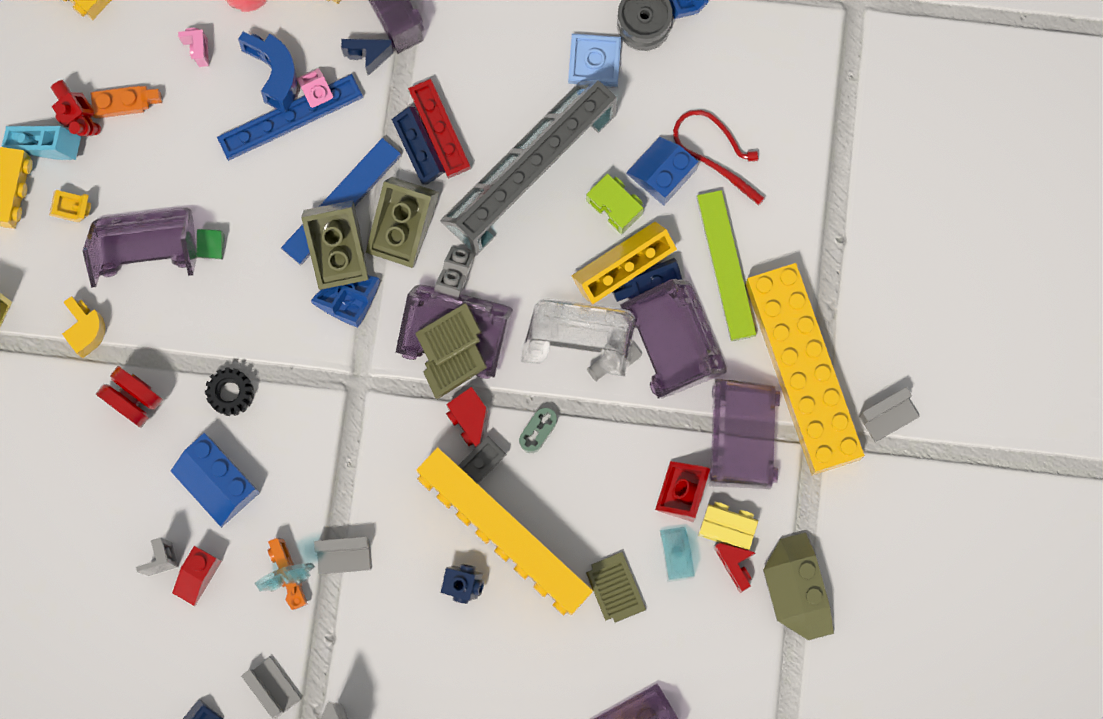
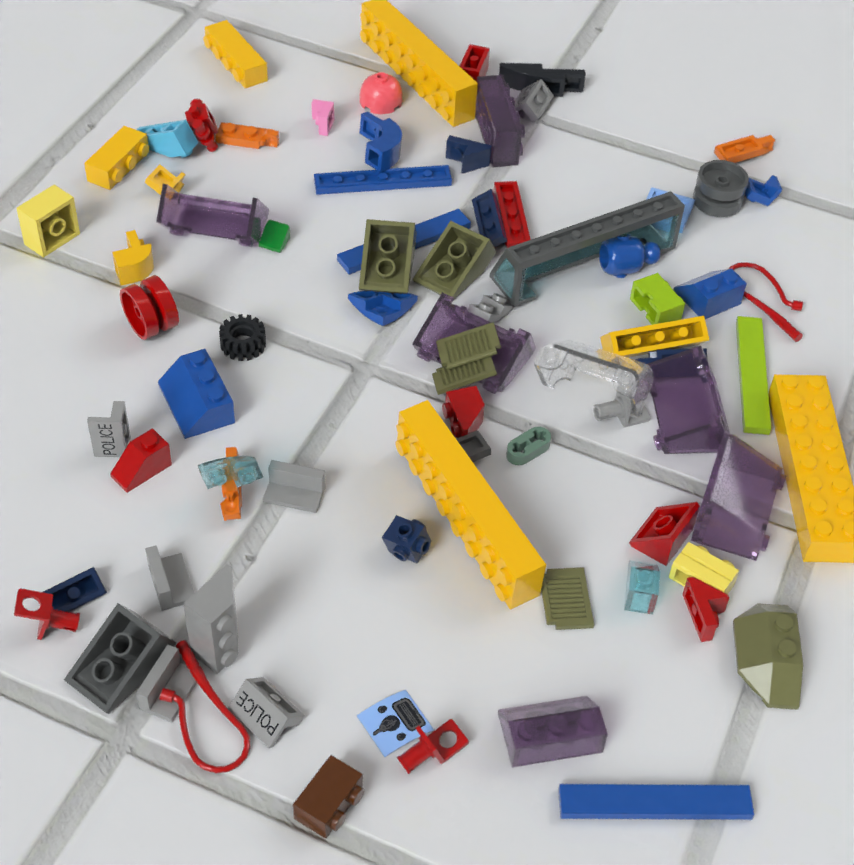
camera: 10 degrees right, 30 degrees down
(315, 88) = (413, 162): bright pink bracket -> none
(577, 155) = (626, 255): none -> blue piece

